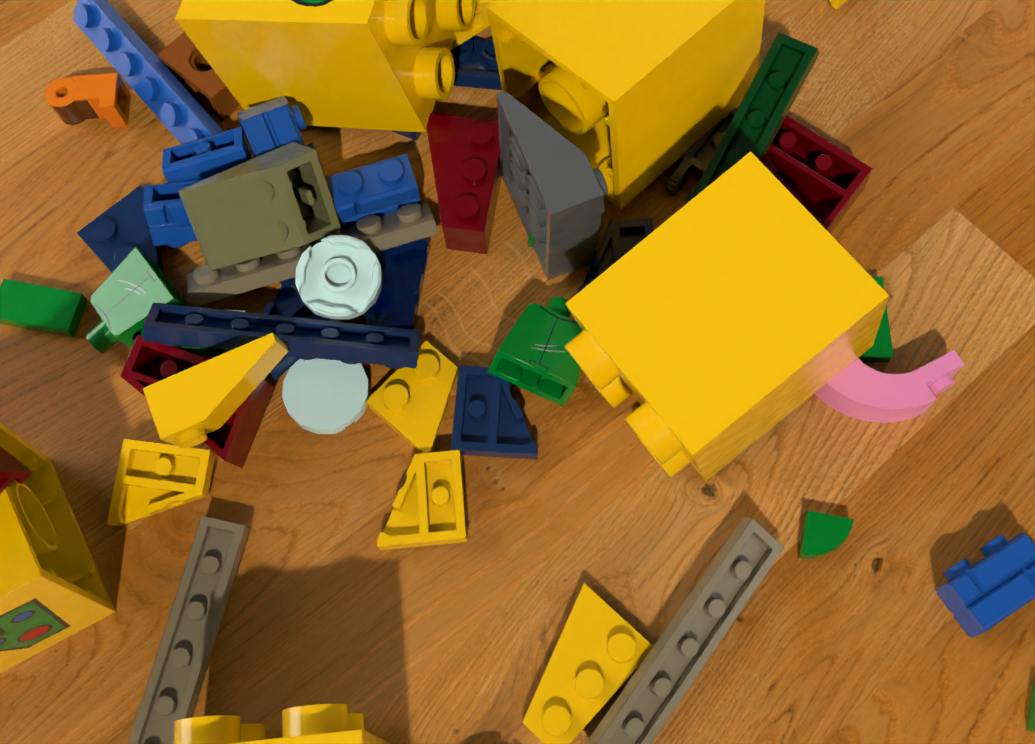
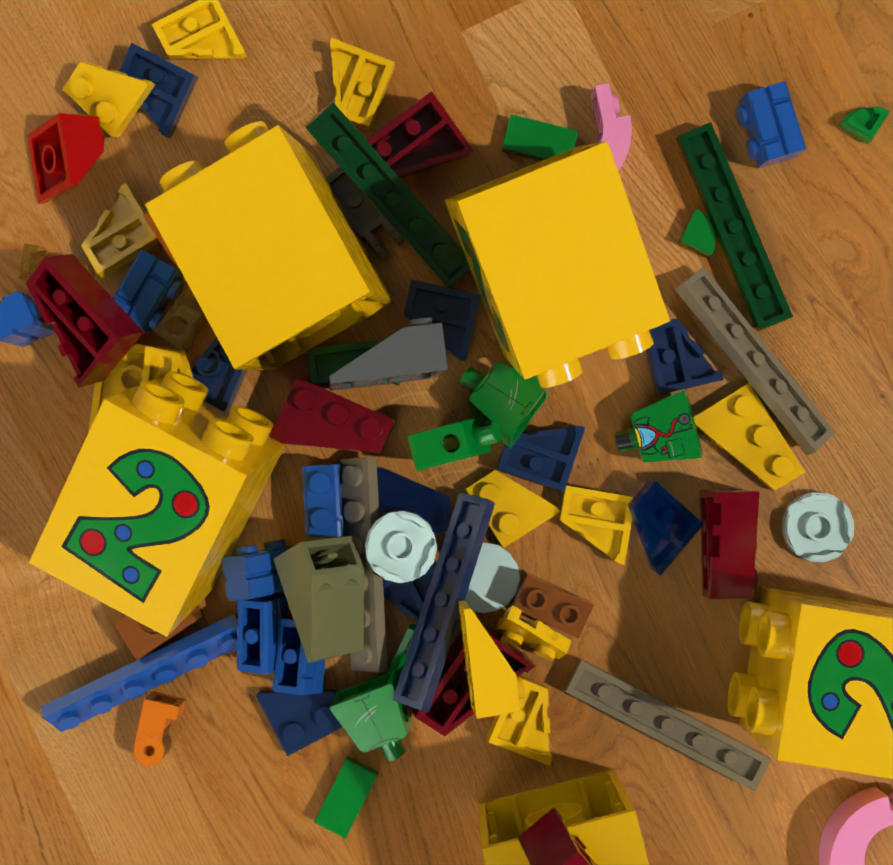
camera: 75 degrees left, 20 degrees up
(266, 439) = (539, 636): none -> yellow wing
(307, 470) = (552, 604): none -> dark orange brick
(434, 673) = (729, 543): none -> dark red wedge
(440, 580) = (662, 524): none -> clear blue wing
(477, 311) = (453, 442): none -> green torso
(561, 549) = (663, 431): none -> green torso
(656, 545) = (677, 360): none -> dark blue wing
(845, 575) = (734, 227): none -> dark green plate
(853, 115) = (359, 82): none -> yellow wing

